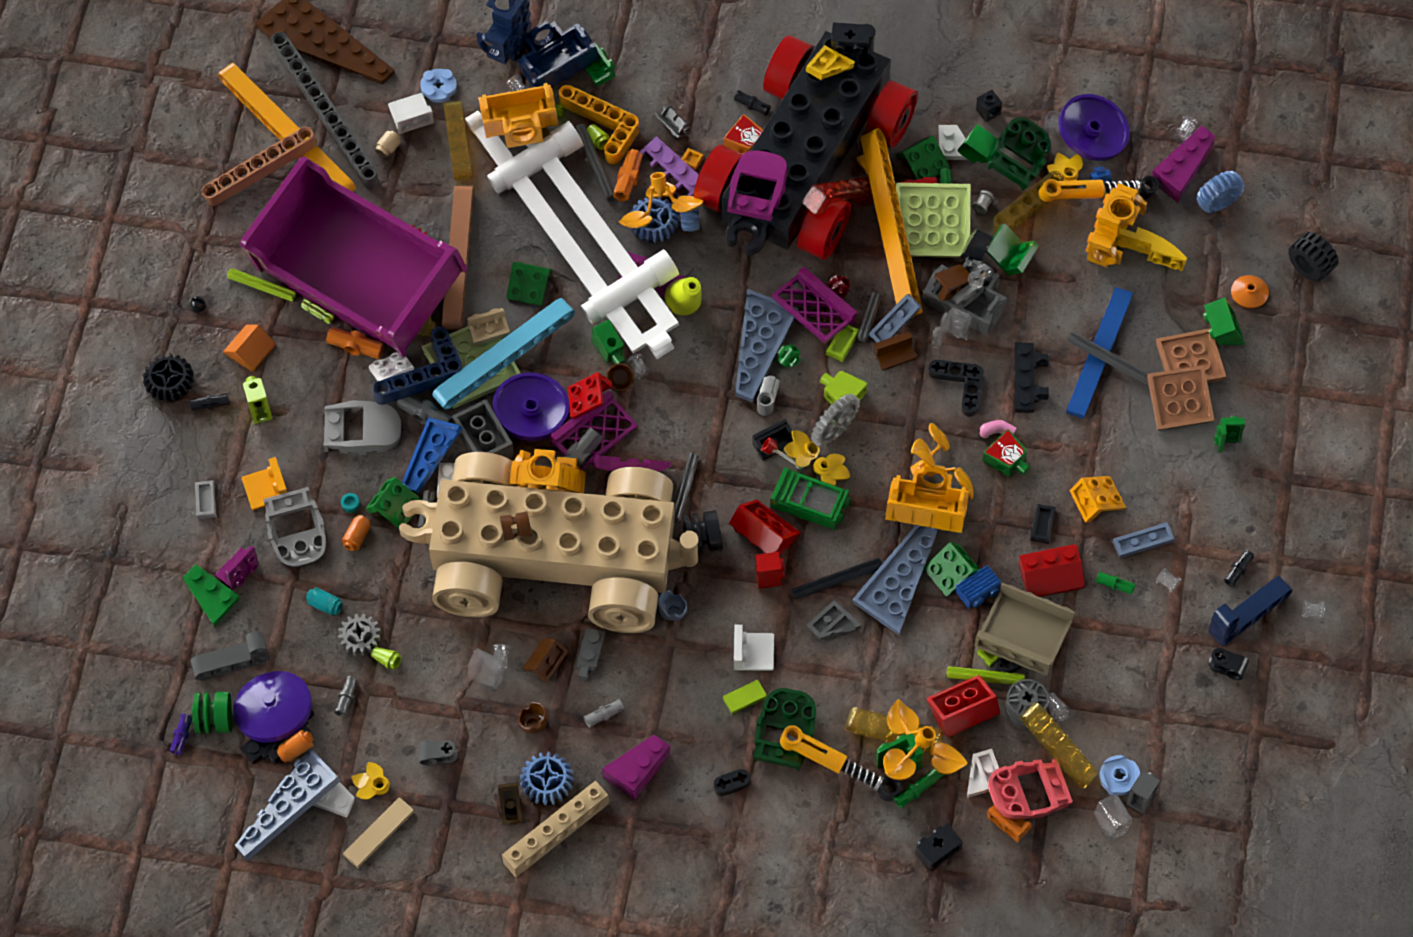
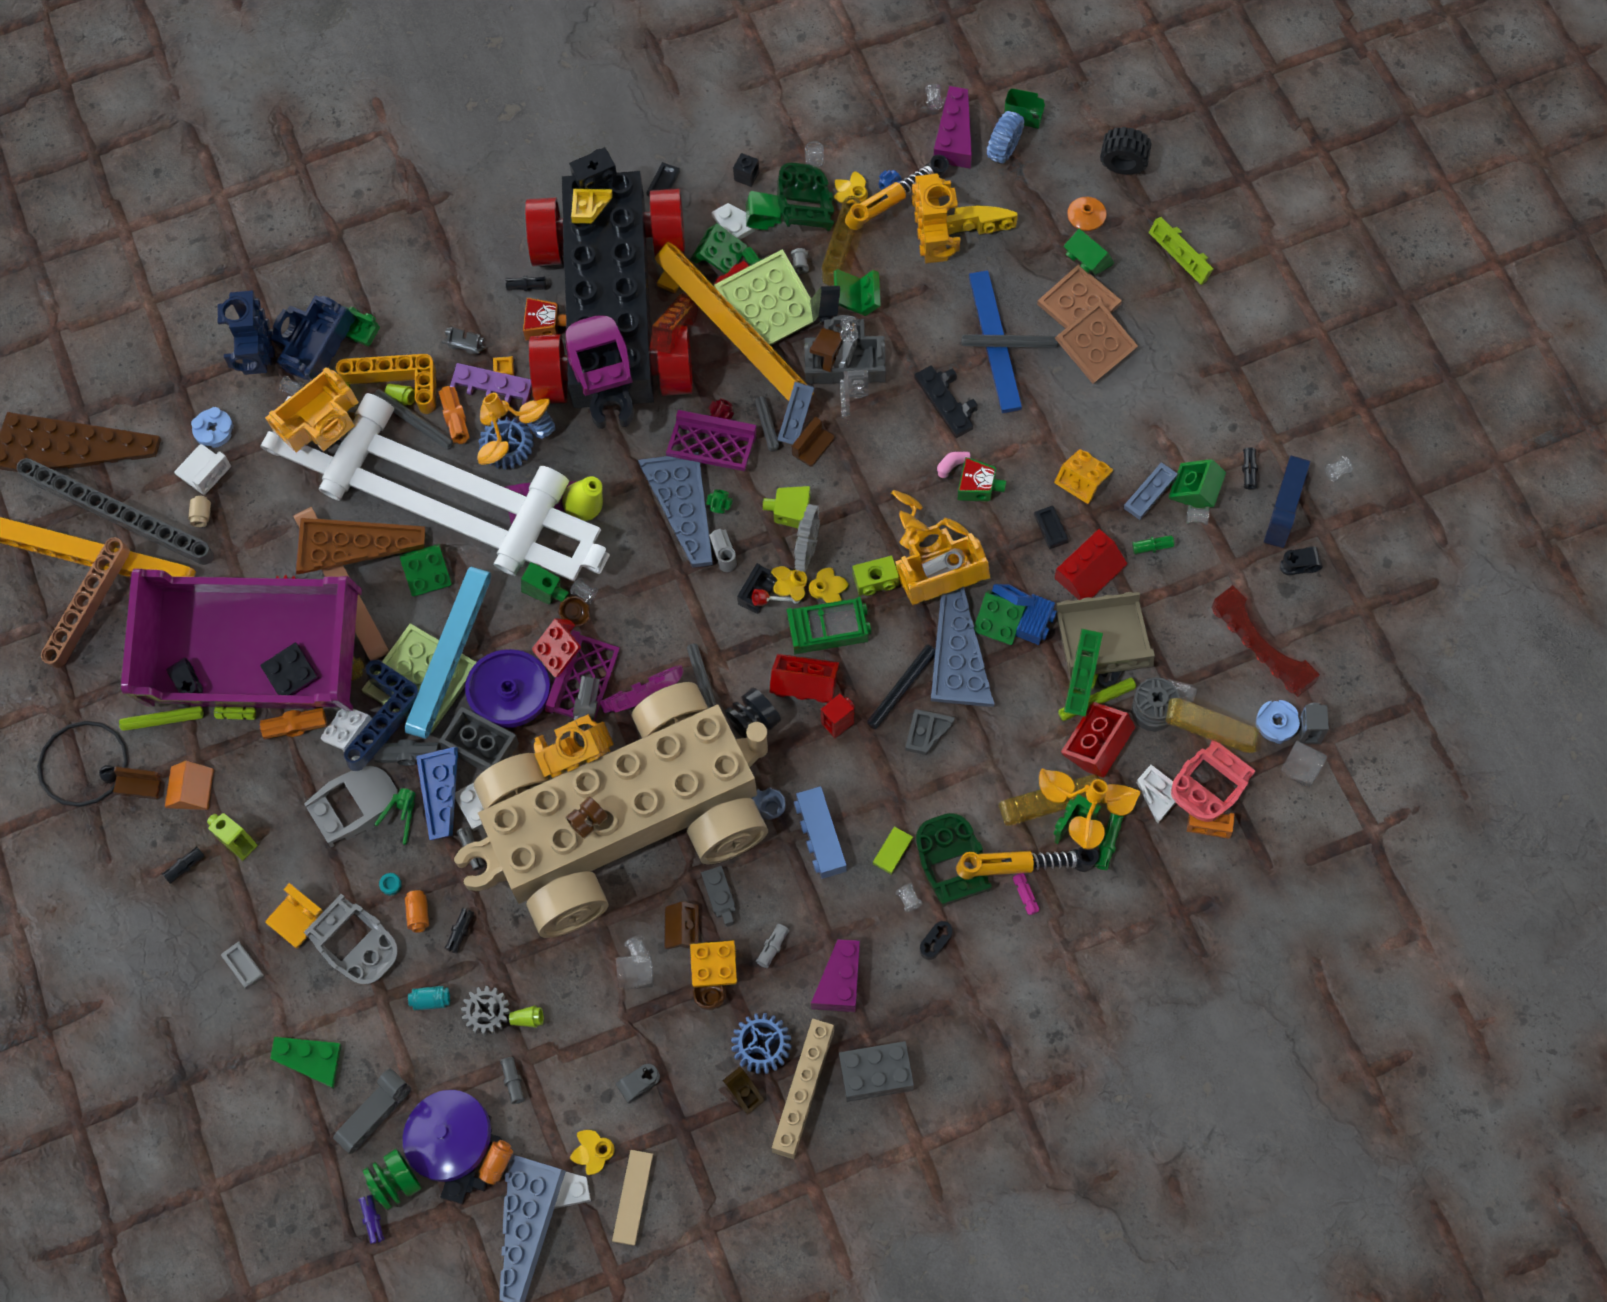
camera: 30 degrees left, 5 degrees up
(175, 385) = (109, 870): black gear -> none
(199, 314) = (62, 731): none -> black piece
(213, 322) = (137, 783): none -> reddish brown panel
(238, 567) = (319, 1015): magenta bracket -> none
(296, 261) = (184, 677): none -> black piece
(375, 300) = (289, 670): none -> black plate
(378, 566) = (459, 930): none -> black pin
(390, 501) = (434, 858): green bracket -> none
(399, 447) = (405, 802): none -> green plant
(457, 140) = (266, 470): clear yellow beam -> none
(476, 225) = (339, 543): none -> dark orange wing
(488, 326) = (416, 634): tan bracket -> none
(549, 697) = (713, 964): none -> light orange bracket
(618, 849) = (876, 1071): none -> dark grey brick
(697, 650) = (821, 832): none -> medium blue brick
(732, 738) = (908, 898): none -> clear bush
(753, 650) = (871, 801): white bracket -> none
(825, 789) = (1026, 894): none -> dark pink axle
(842, 343) = (758, 462): lime tile -> none
(867, 474) = (882, 567): none -> lime brick
(918, 78) = (664, 178): none -> black tile
(929, 499) = (942, 563): none -> light grey piece
(934, 856) = (1172, 876): black brick -> none
(969, 381) = (895, 431): black beam -> none
(971, 556) = (1013, 594): none -> blue tile
(982, 645) = (1083, 672): none -> green hinge
(1093, 127) = (854, 139): dark purple dish -> none
(1159, 748) = (1295, 674): none -> clear red arch
(1186, 556) = (1198, 483): none -> green slope
(1229, 430) = (1159, 348): green bracket -> none
(1251, 171) = (1025, 104): none -> green piece
(1304, 356) = (1180, 250): none -> lime hinge

